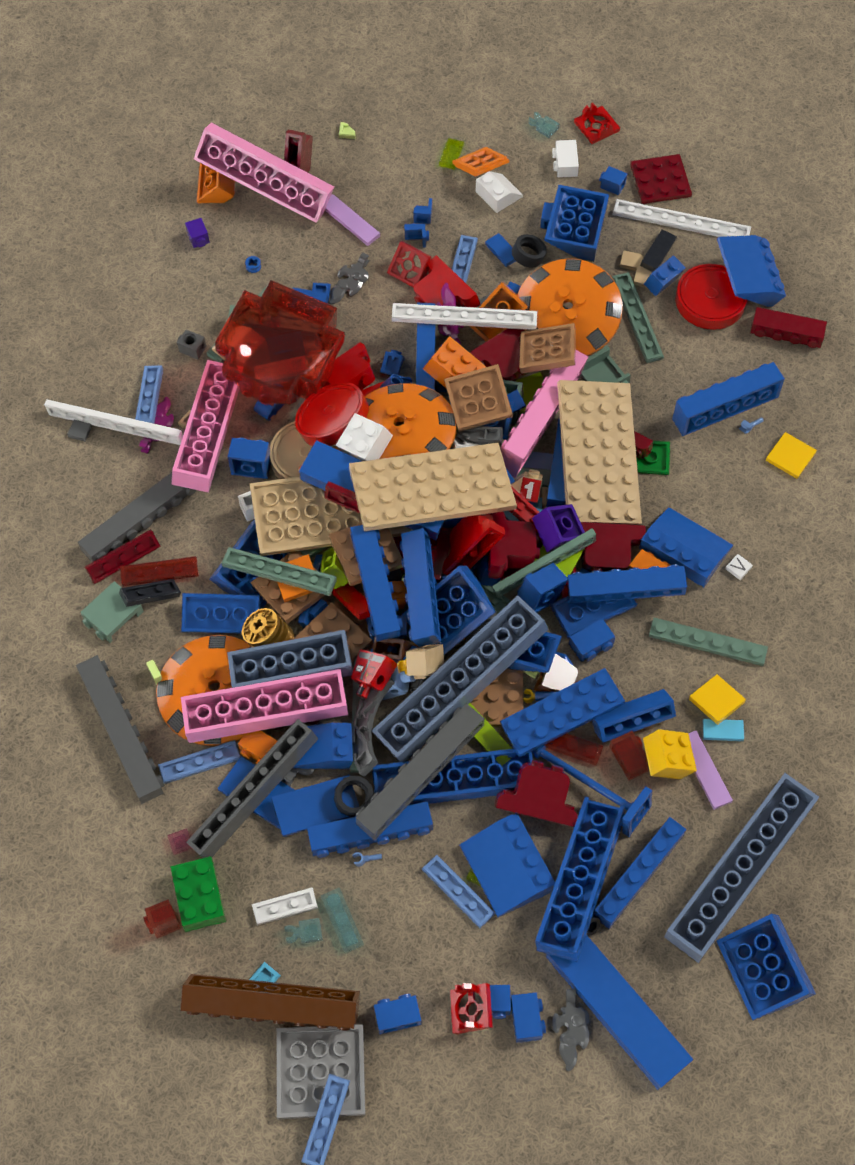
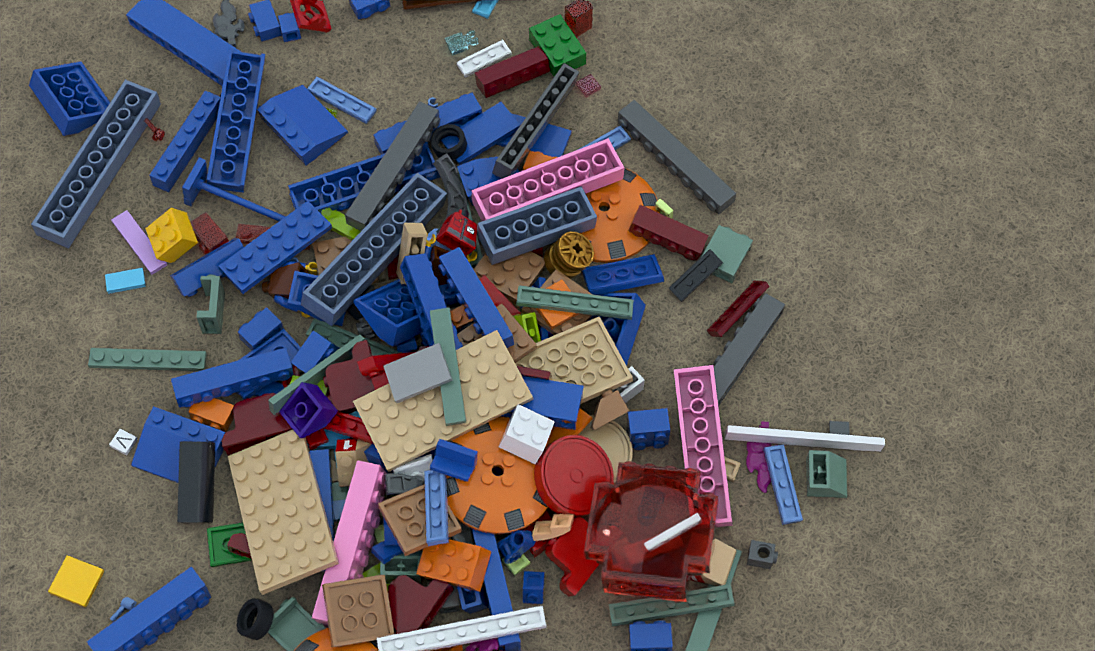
camera: 165 degrees right, 0 degrees up
(110, 391) = (826, 474): none -> sand green slope
(159, 571) = (696, 304): clear red plate -> none
(160, 640) = (668, 233): none -> dark red brick
(258, 871) = (512, 72): none -> dark red brick
(262, 351) = (673, 532): none -> white tile
(282, 467) = (608, 409): none -> medium nougat slope
(342, 920) = (433, 58): clear light blue plate -> none
(362, 381) = (550, 529): none -> light nougat slope
(420, 503) = (451, 391): none -> sand green tile
(437, 427) = (454, 460): none -> blue panel
(450, 500) = (418, 373): none -> light grey tile
(461, 397) = (436, 508): none -> medium blue tile
(539, 794) = (285, 173): dark red brick -> none
(641, 653) = (212, 320): none -> sand green panel
(645, 378) = (263, 620): none -> black tyre
(672, 894) = (158, 133): none -> clear red hand
(674, 502) = (196, 482): none -> black brick
(717, 699) = (133, 303): yellow tile -> none

